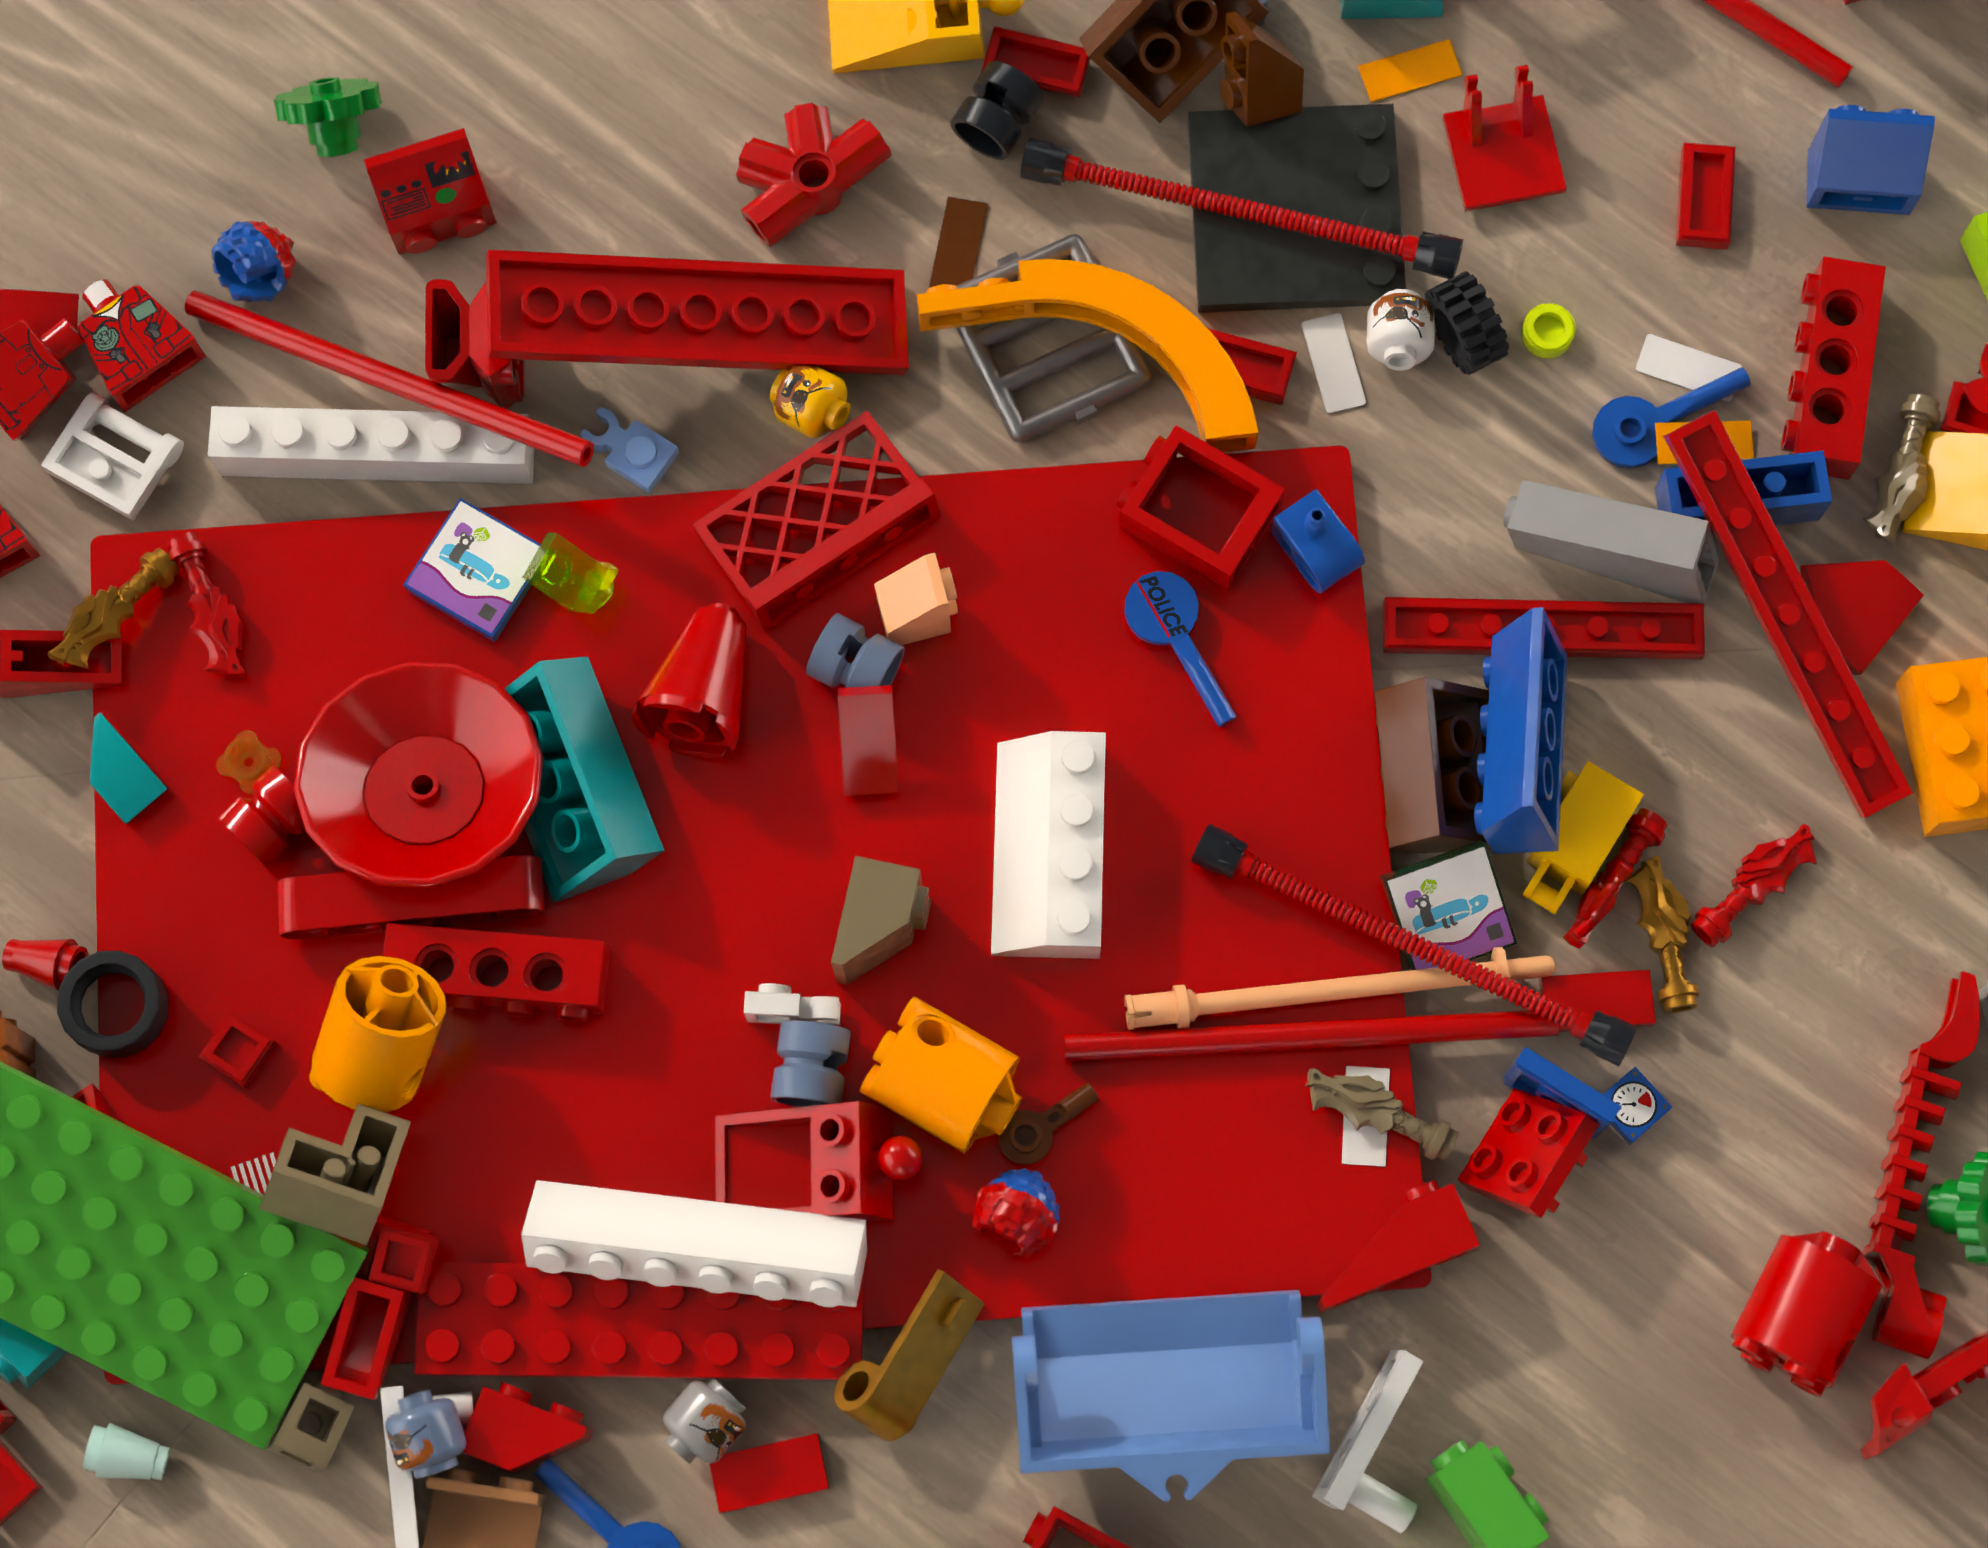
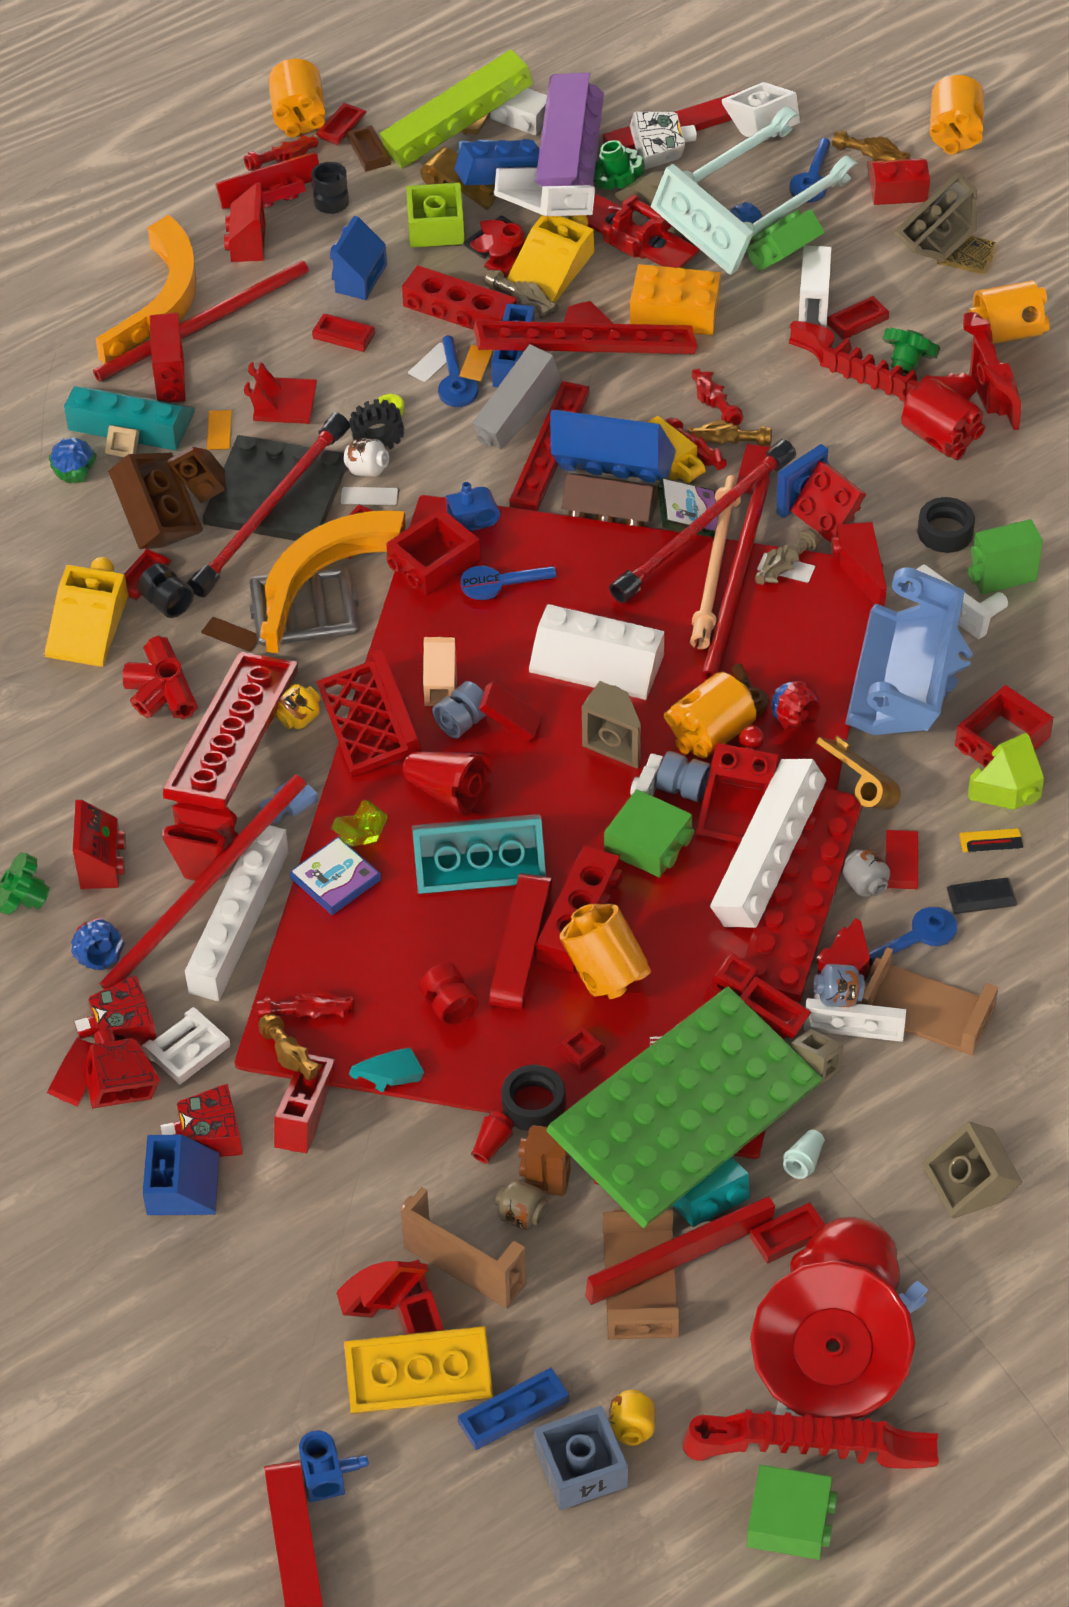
camera: 75 degrees left, 25 degrees down
(243, 747) = (404, 999): plate -> none
(337, 1184) = (681, 981): dark tan brick -> none
(408, 731) = (455, 905): red dish -> none
(670, 1040) = (648, 833): none -> bright green brick
(1596, 1359) = (941, 540): none -> black tyre

